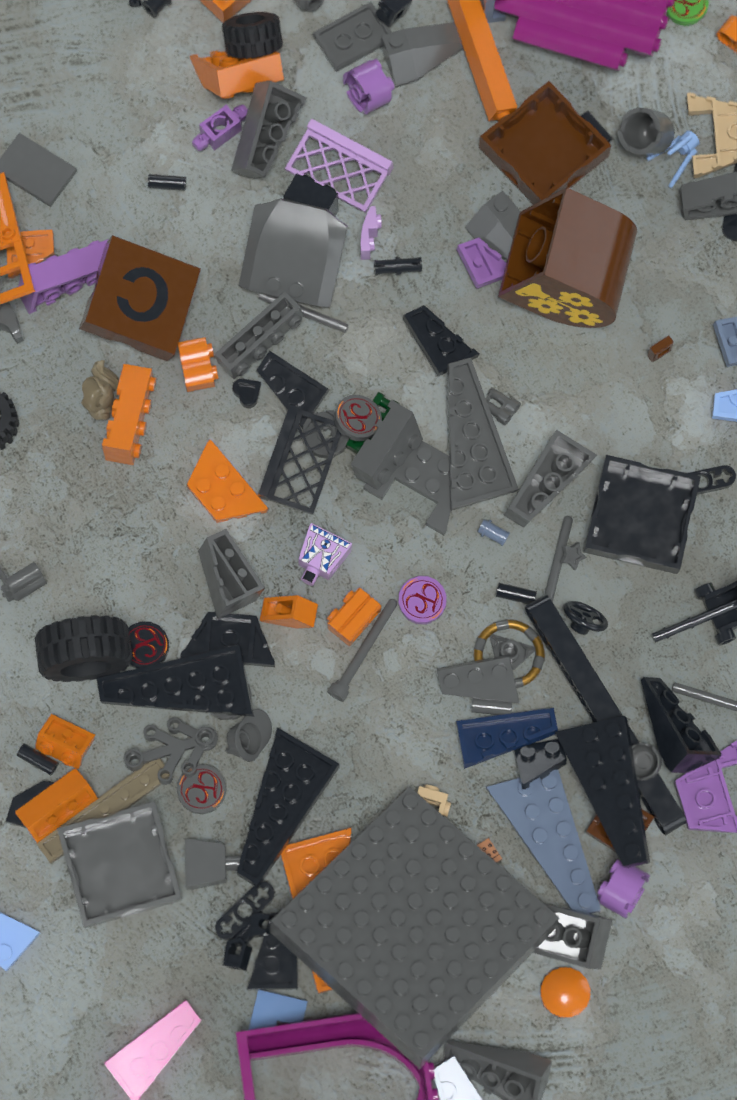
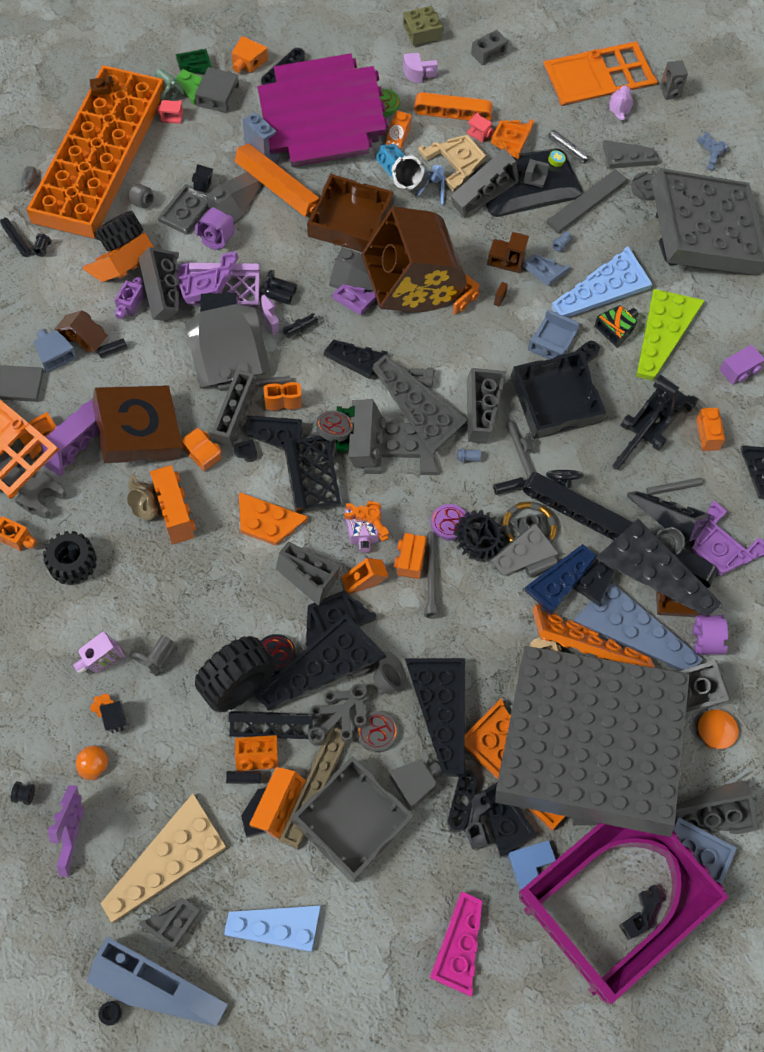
camera: 30 degrees left, 10 degrees down
(98, 151) = (53, 349): none -> sand blue torso
(98, 715) = (270, 717): none -> black fence
(141, 143) = (83, 330): none -> reddish brown brick
(315, 156) = (205, 281): none -> medium lavender wing
(317, 347) = (282, 396): none -> orange brick
(333, 547) = (370, 514): none -> orange piece
(400, 204) = (278, 289): none -> black piece
(449, 643) = (493, 539): none -> black gear
(483, 818) = (584, 639): none -> orange wing
(629, 327) = (471, 294): none -> orange bracket
(645, 91) = (388, 155): none -> dark azure bracket
(676, 57) = (399, 129): none -> orange slope
(689, 437) = (553, 335): none -> sand blue panel
(703, 300) = (509, 254): none -> reddish brown brick

